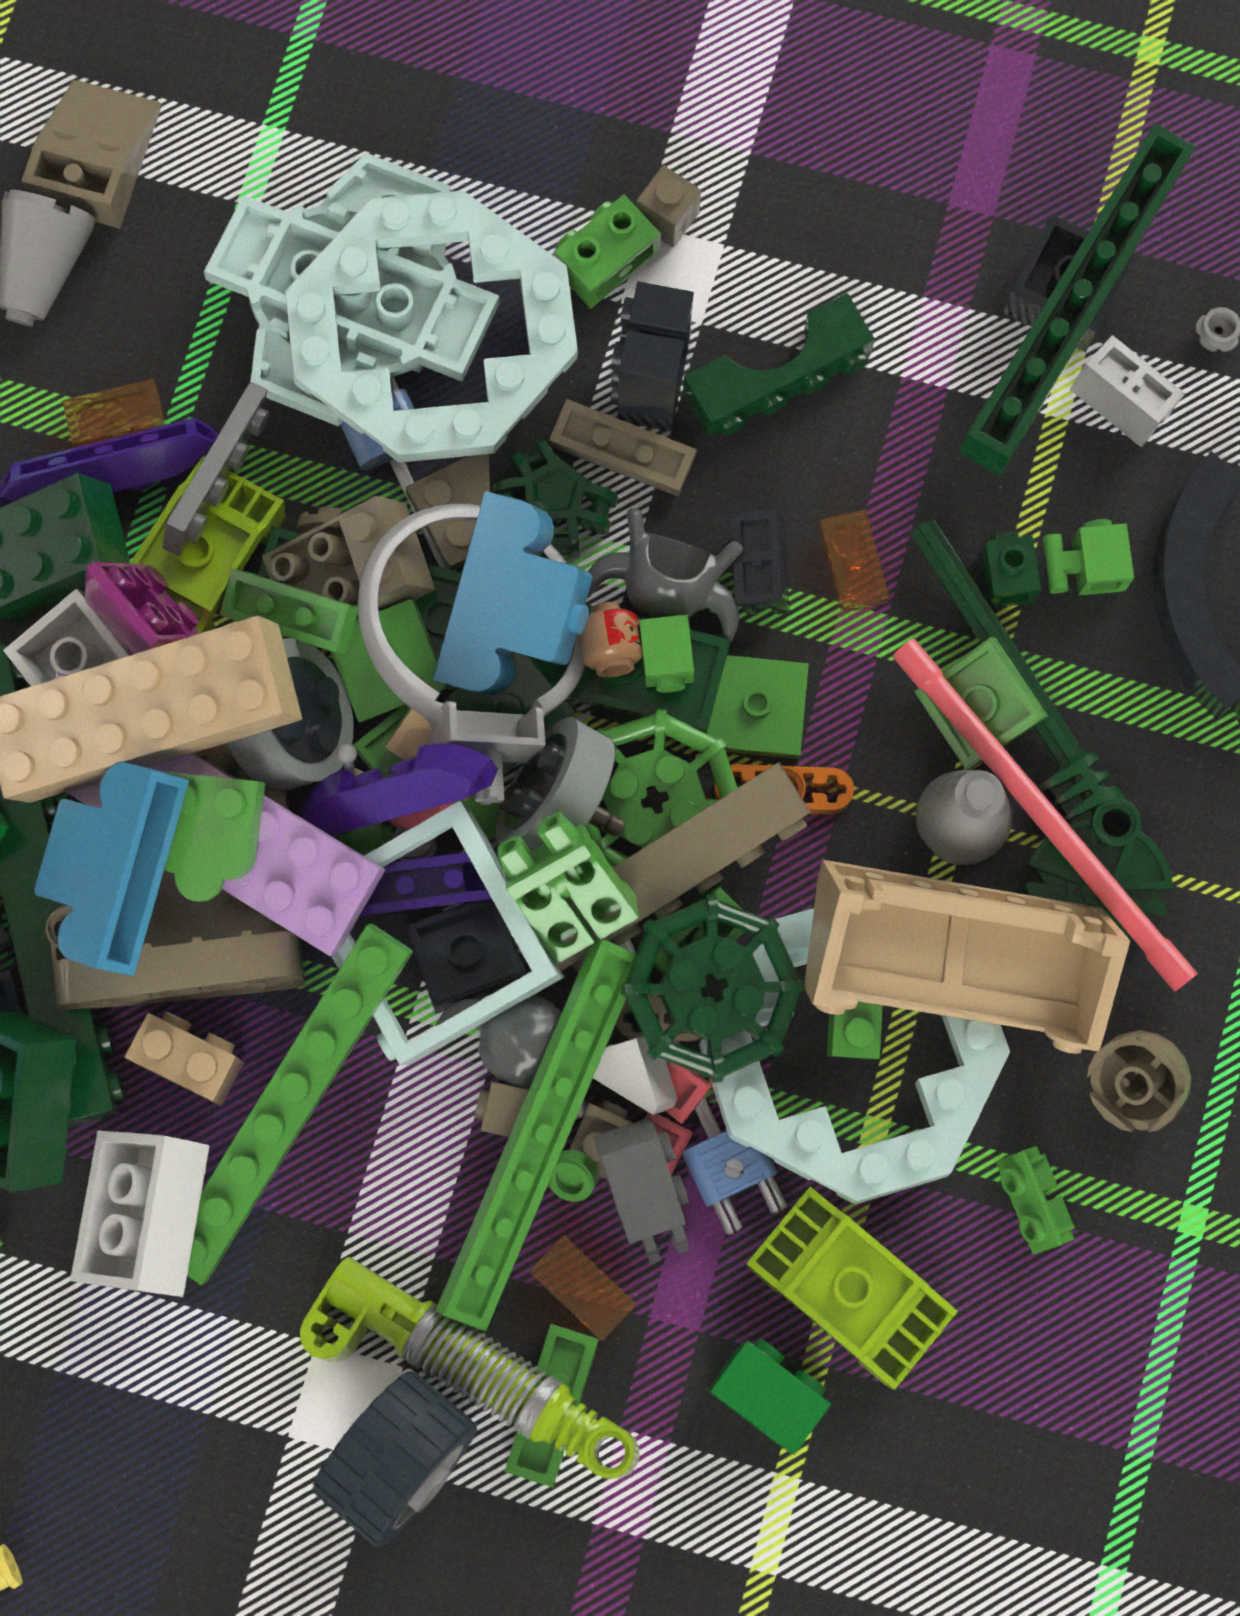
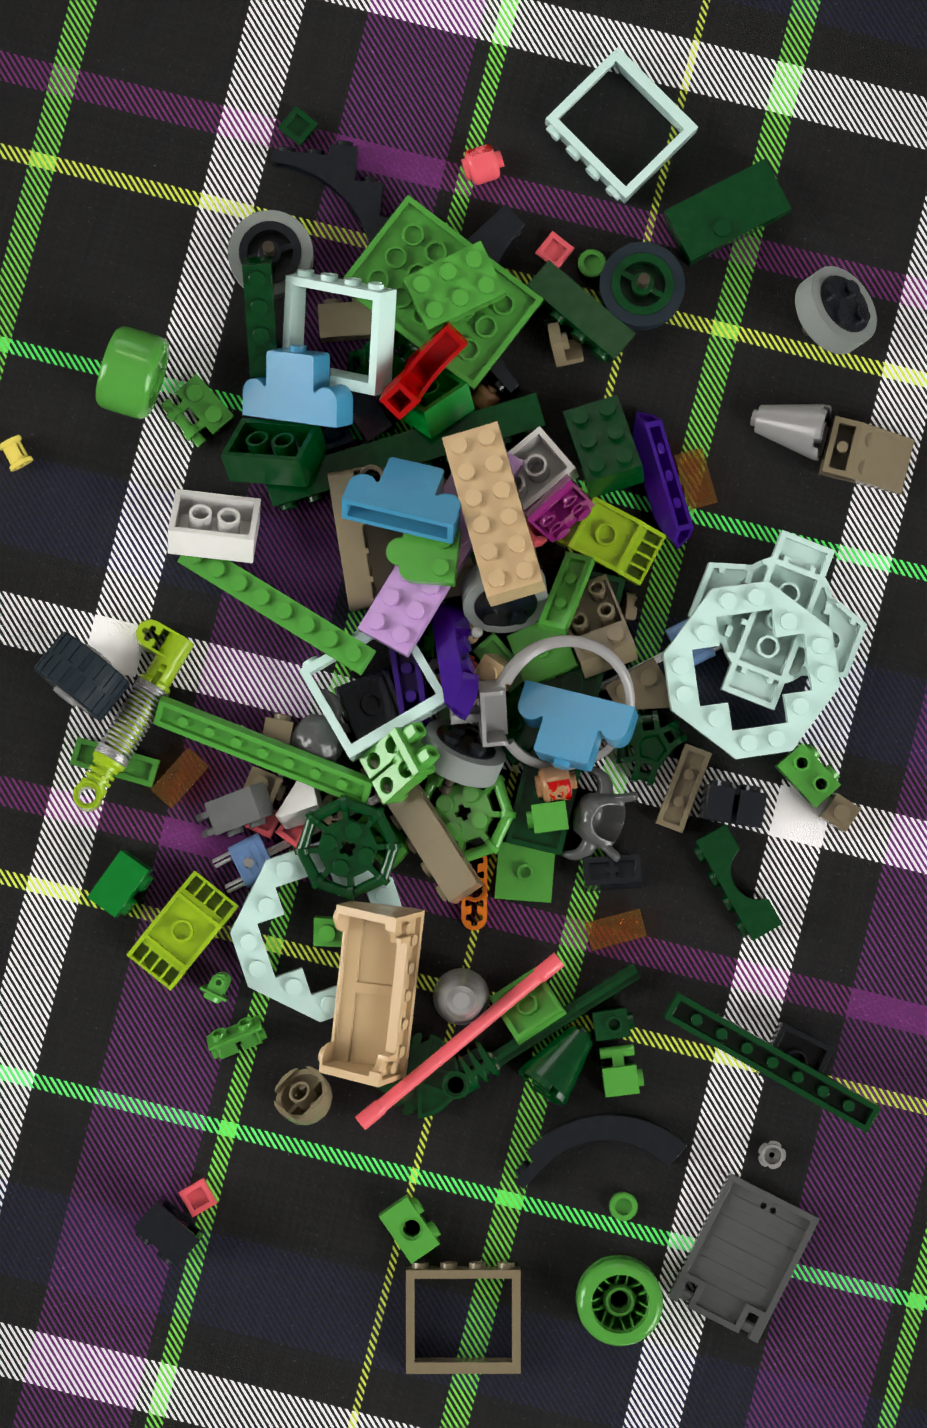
camera: 90 degrees right, 10 degrees up
(185, 1059) = (304, 544): tan brick -> none
(209, 482) = (663, 551): plate -> none
(574, 1176) = (242, 771): bright green tile -> none
(953, 1227) = (217, 987): none -> bright green hinge
(1081, 654) = (558, 1065): none -> dark green cone
(1126, 391) = (728, 1096): light grey hinge -> none

